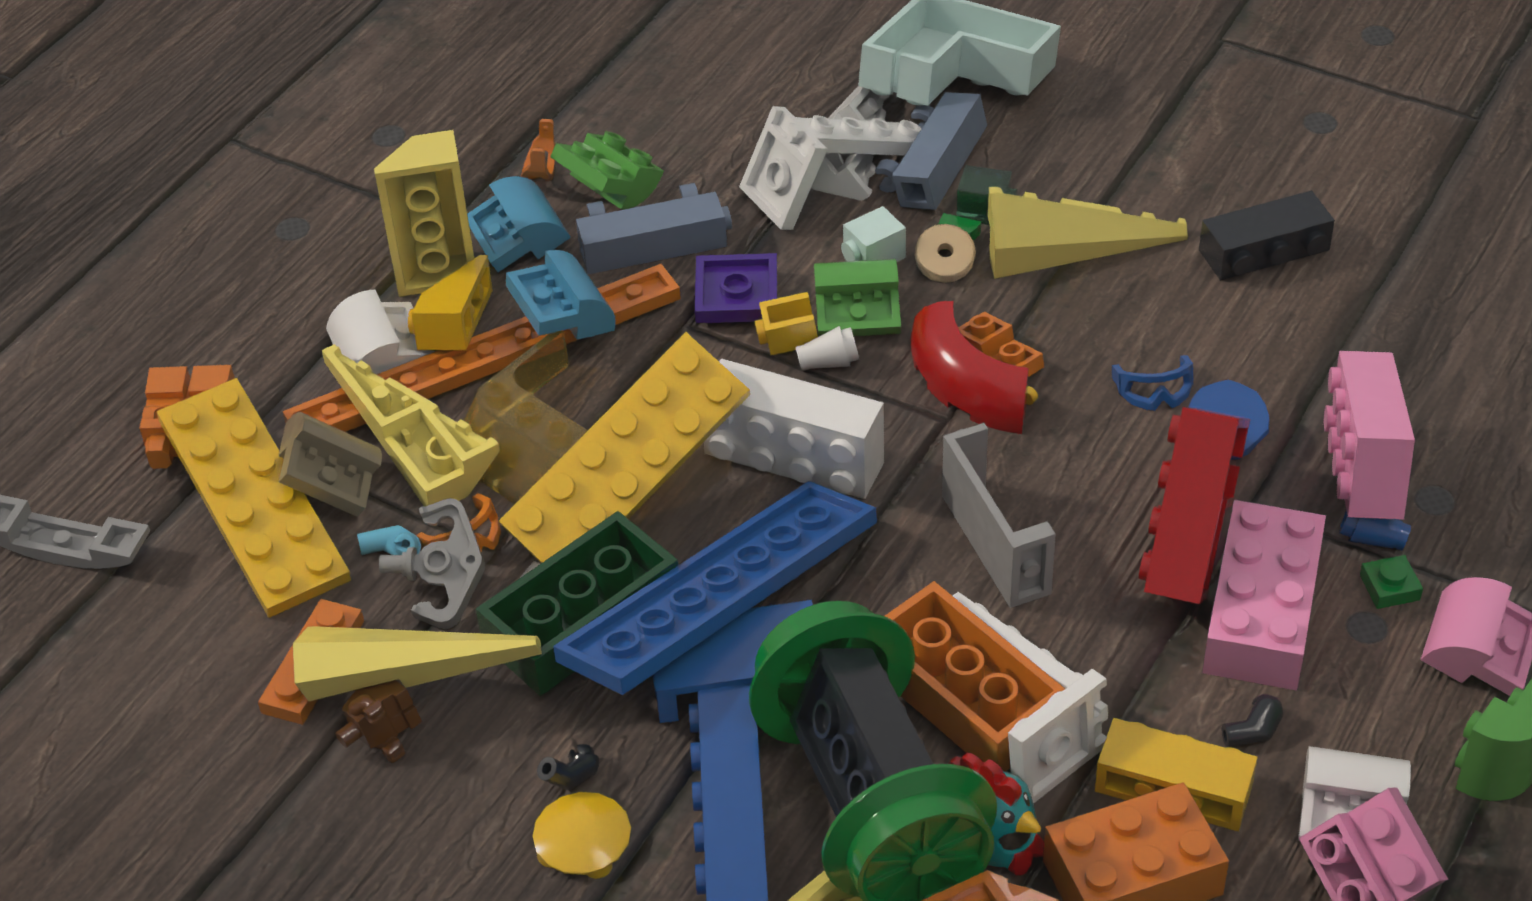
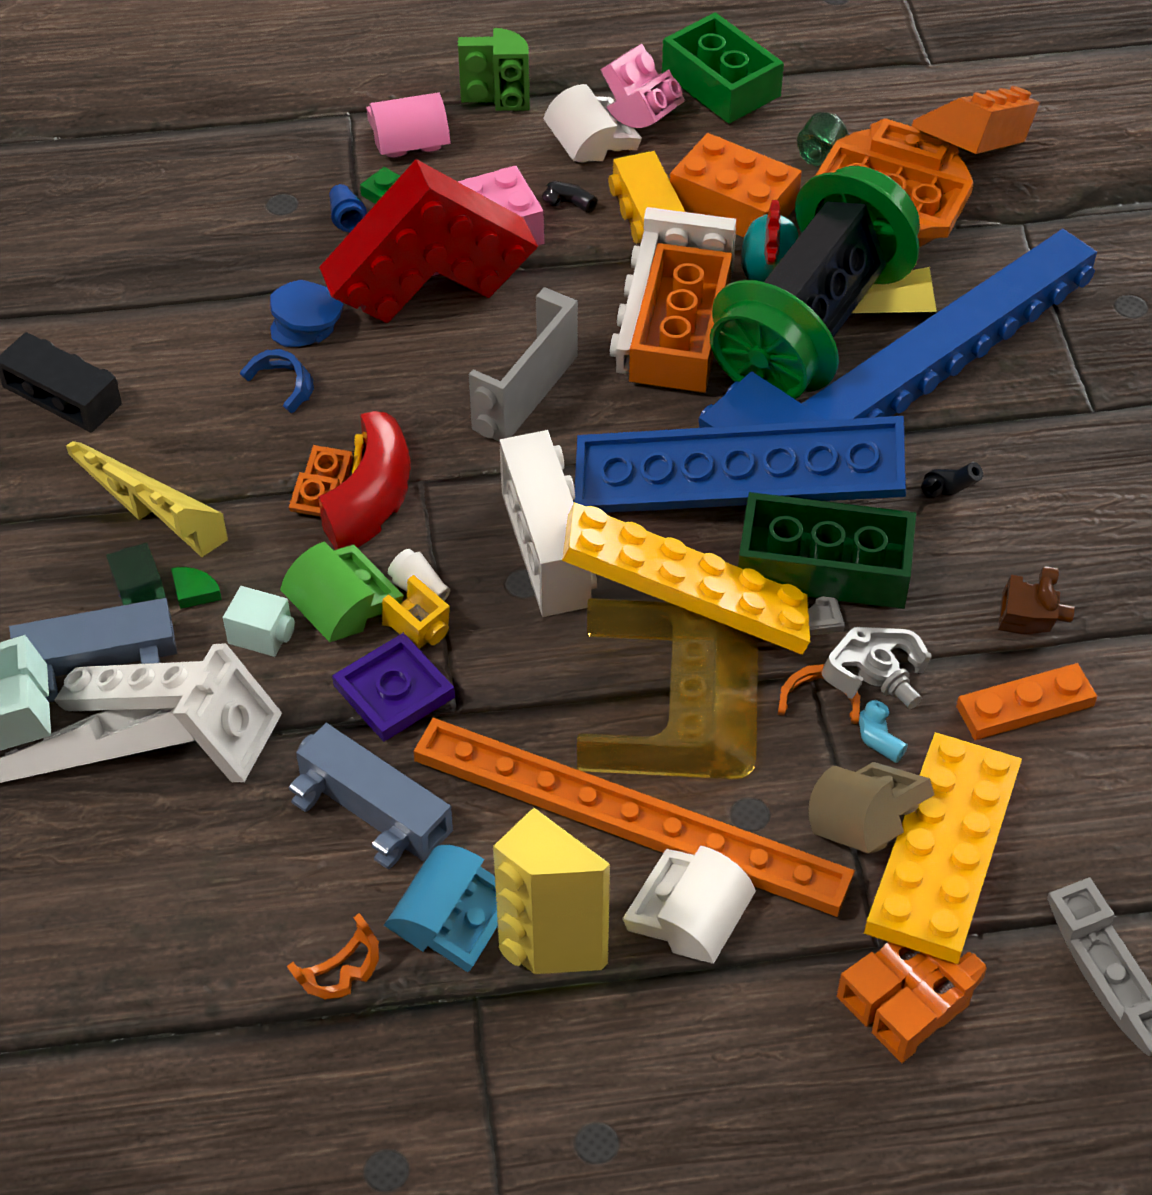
camera: 130 degrees left, 5 degrees up
(350, 659) = (1013, 615): light yellow wedge -> none
(428, 448) = (777, 767): light yellow wedge -> none
(452, 308) = (633, 843): yellow slope -> none
(560, 297) = (549, 750): dark azure brick -> none
(582, 834) = (989, 444): yellow dish -> none
(610, 168) = (314, 881): bright green brick -> none
(945, 268) = (246, 567): tan piece -> none
(1369, 435) = (285, 200): bright pink brick -> none

